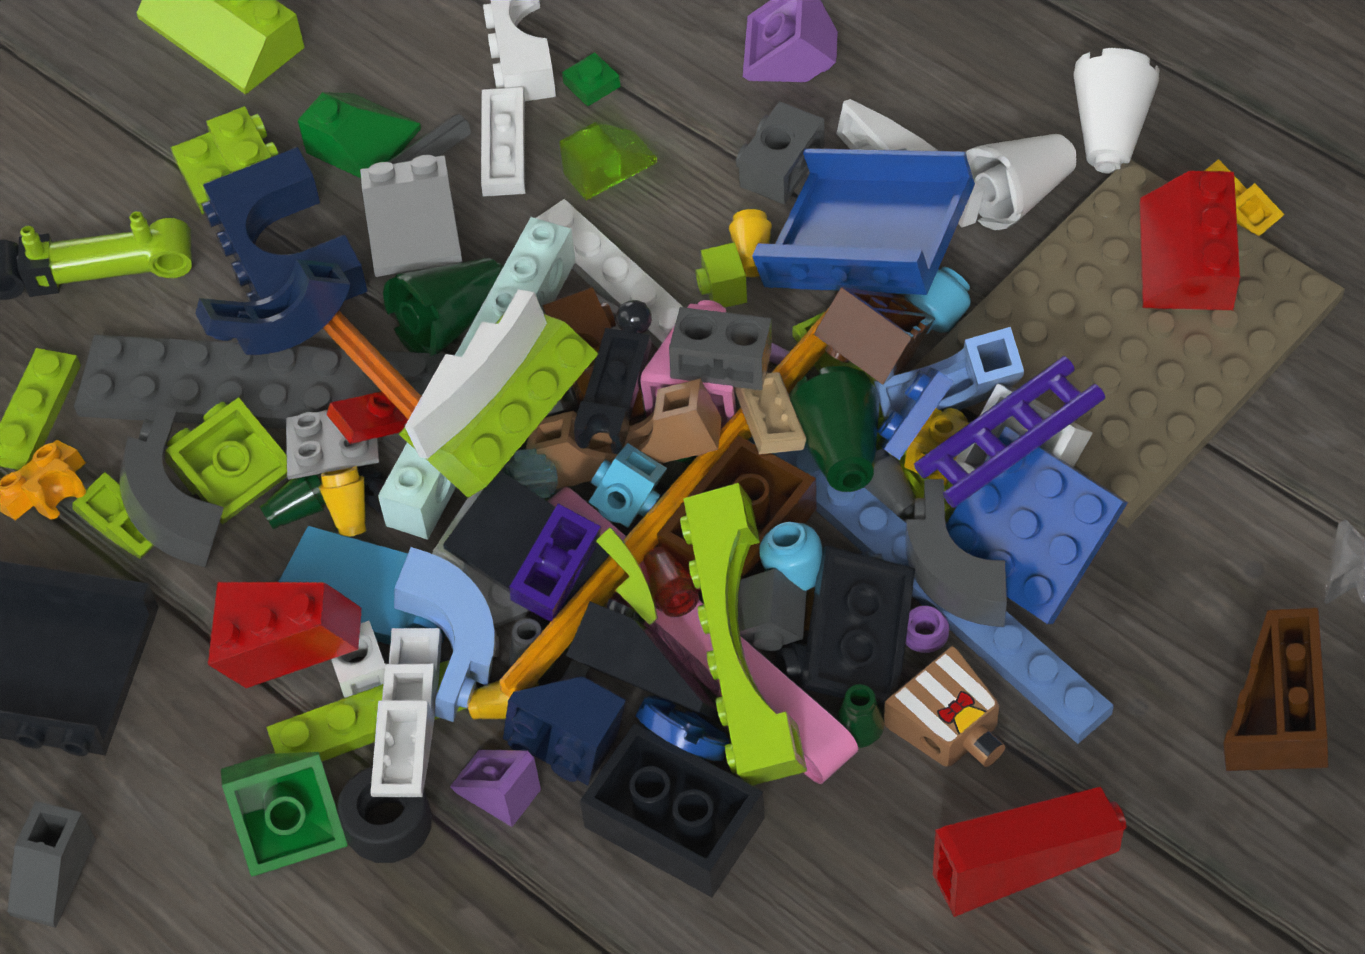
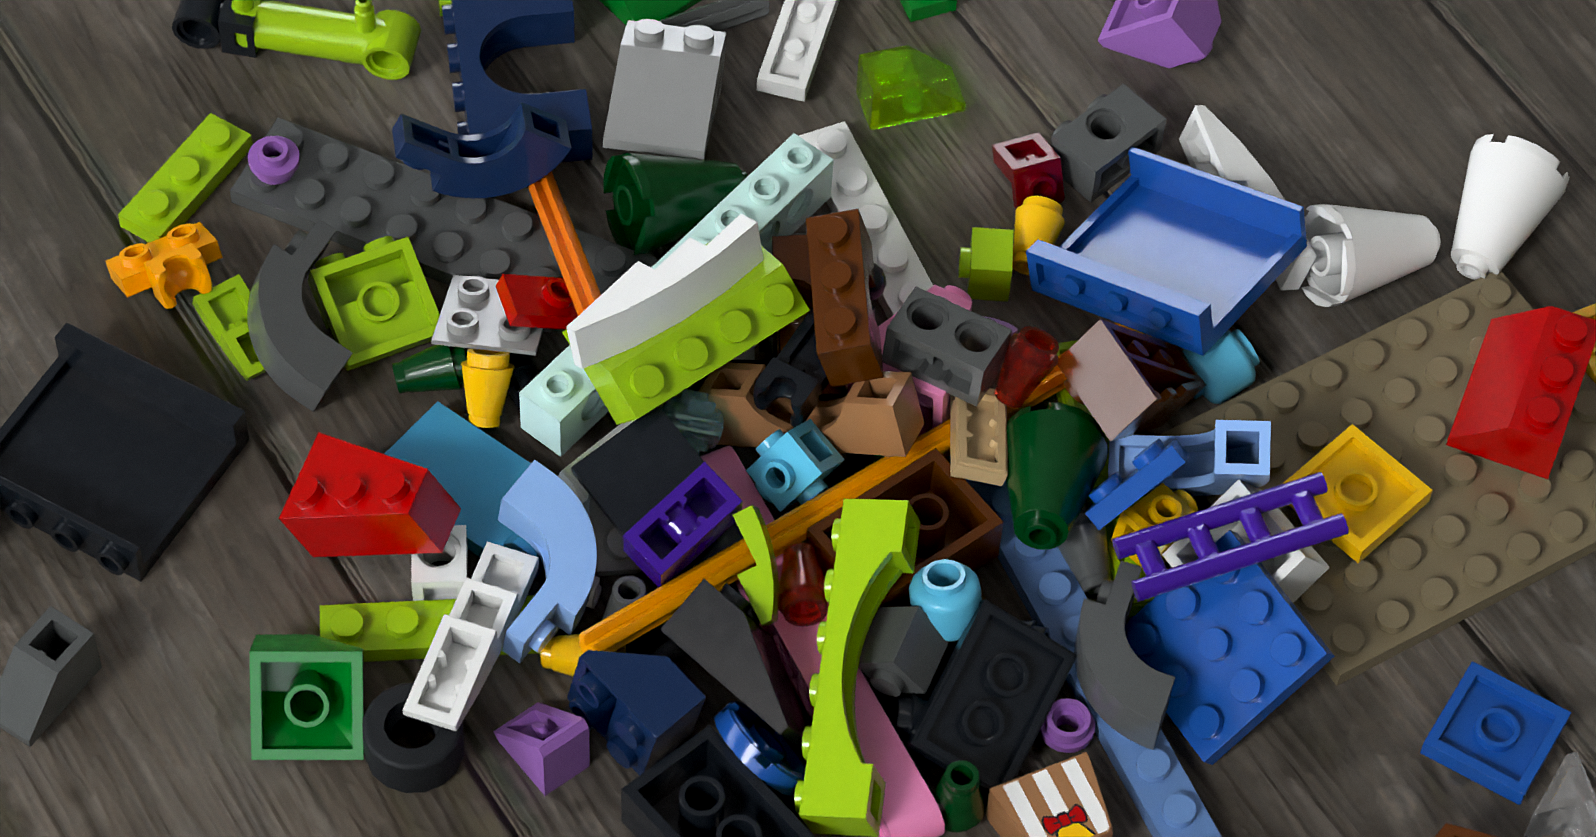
camera: 10 degrees right, 0 degrees up
(106, 377) = (277, 169): none -> medium lavender plate
(624, 334) = (842, 308): none -> reddish brown arch
(728, 190) = (1030, 167): none -> dark red bracket
(790, 344) = (1026, 364): none -> clear red cone
(1098, 359) = (1367, 488): none -> yellow plate
(1271, 525) = (1495, 733): none -> blue plate

